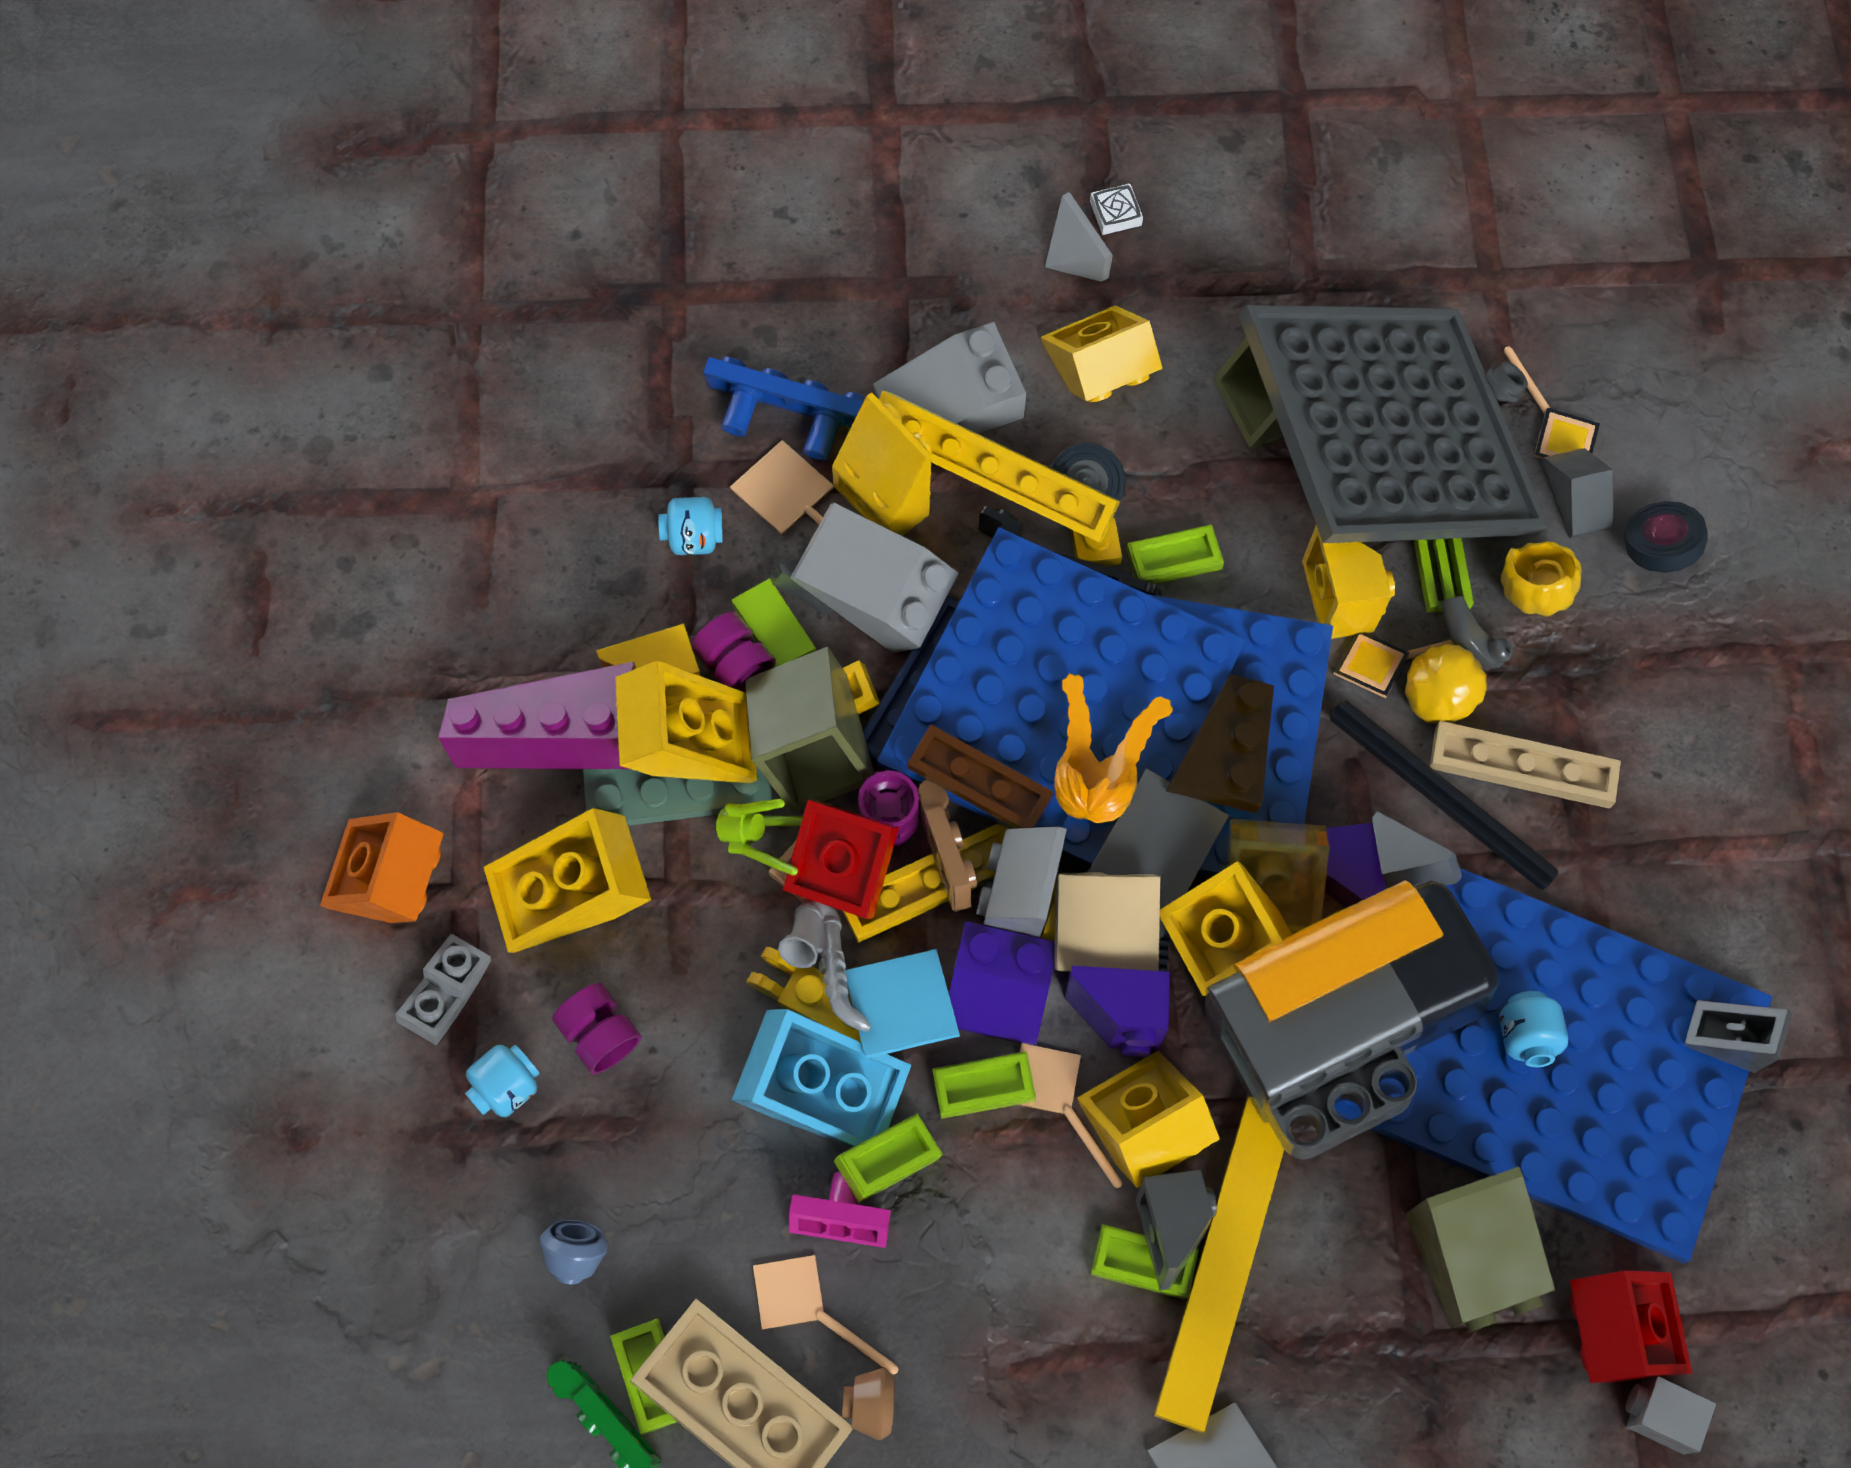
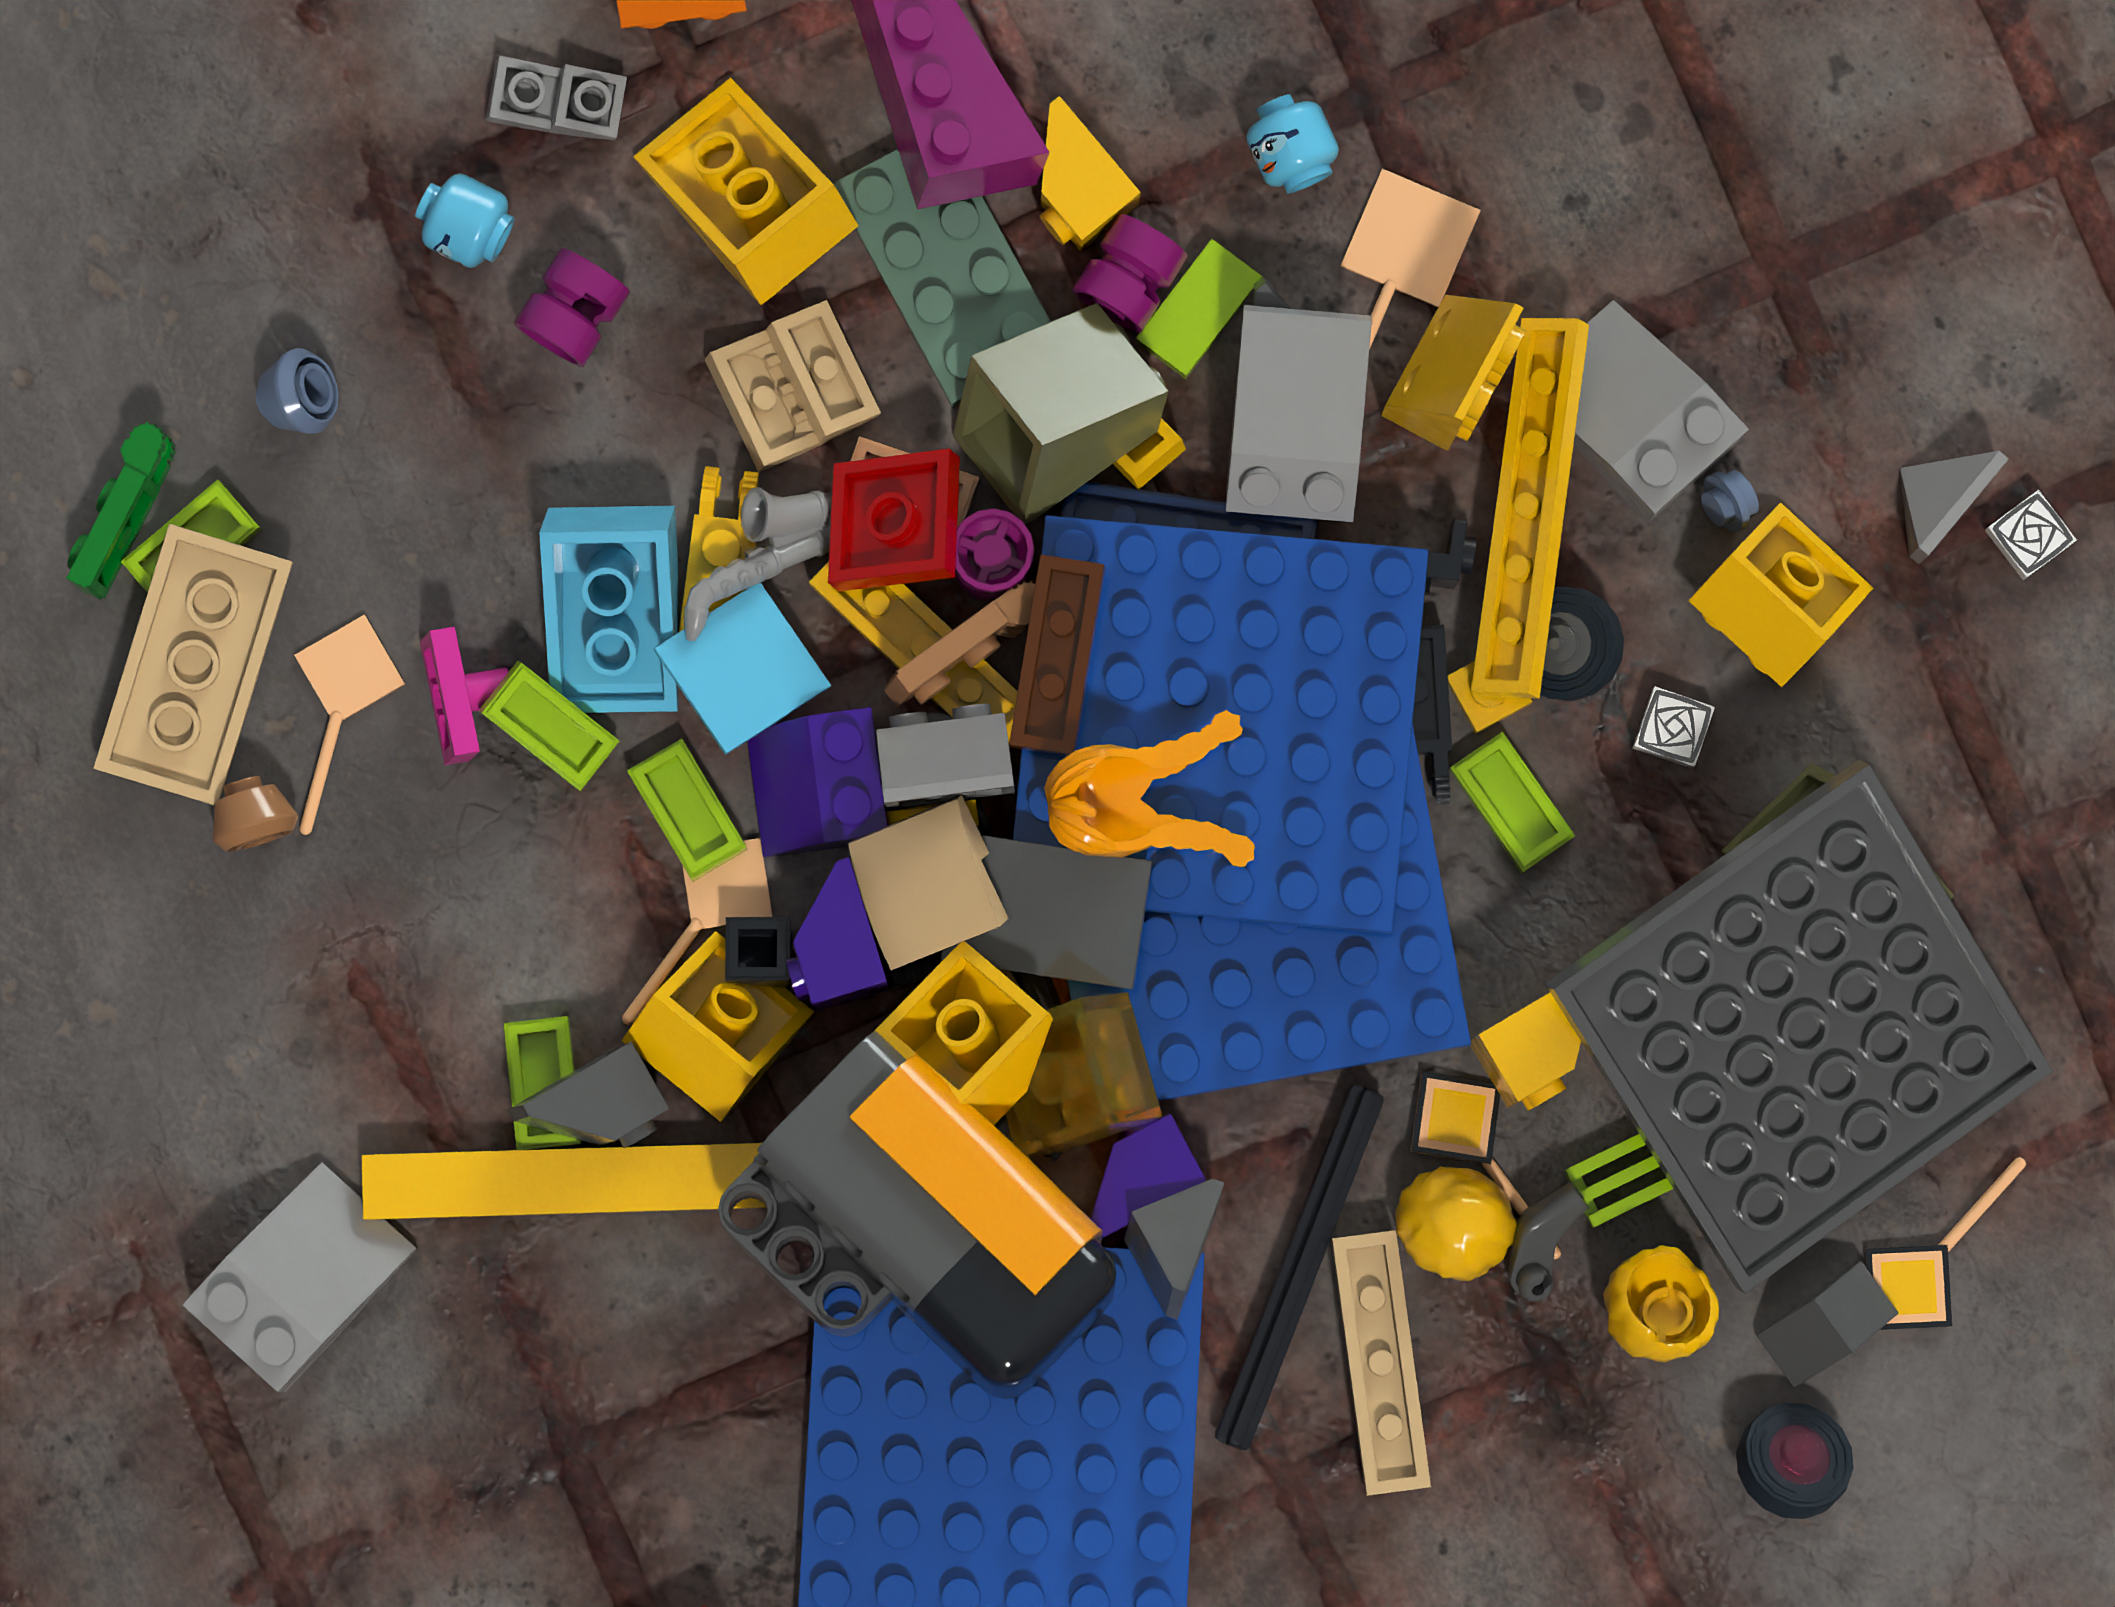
camera: 65 degrees right, 15 degrees up
(682, 725) = (983, 251): yellow slope -> none
(714, 904) = (792, 386): none -> tan slope
(742, 826) = (904, 386): lime plant -> none
(774, 388) = (1545, 164): blue plate -> none
(1030, 359) = (1729, 500): none -> sand blue plate
(1104, 1068) = (758, 950): none -> black slope
(1161, 445) = (1673, 727): none -> tile
(1230, 748) = (1227, 961): dark brown wing -> none
(1482, 1249) = (699, 1487): olive slope -> none
(1507, 381) = (1958, 1174): dark grey plate -> none
(1533, 1028) = (1001, 1467): medium azure head -> none

